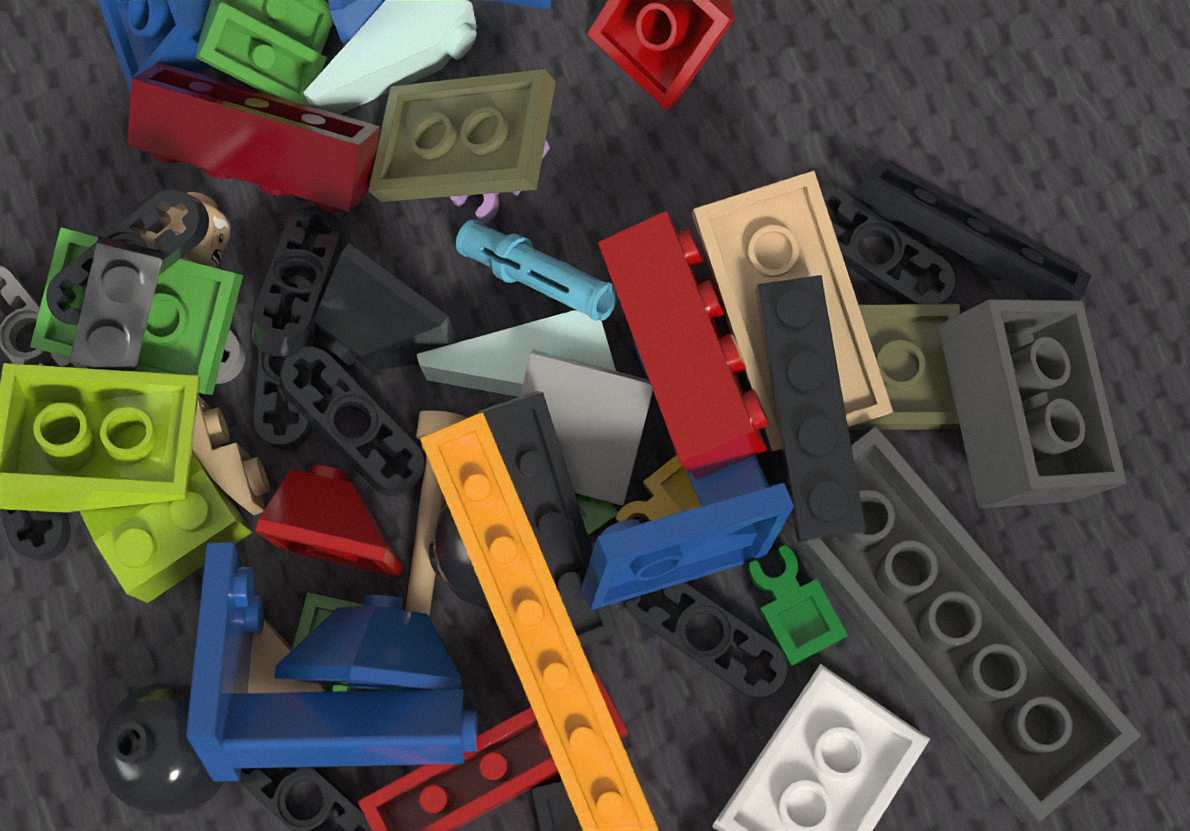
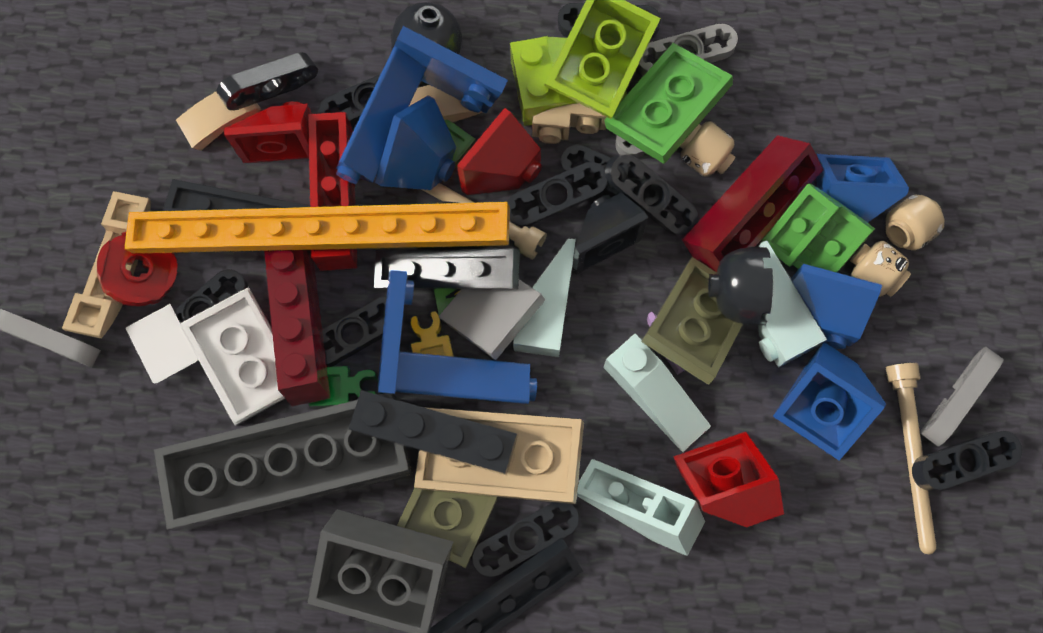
camera: 110 degrees right, 0 degrees up
(116, 305) = (667, 84): black plate -> none
(154, 218) = (691, 116): black beam -> none
(390, 84) = (743, 286): none -> black cylinder
(516, 260) = (609, 321): medium azure pin -> none
(587, 166) = (656, 392): none -> light aqua slope
(682, 345) = (507, 381): red brick -> none
(742, 707) = (296, 326): none -> dark red brick
(757, 108) = (642, 506): none -> light aqua slope

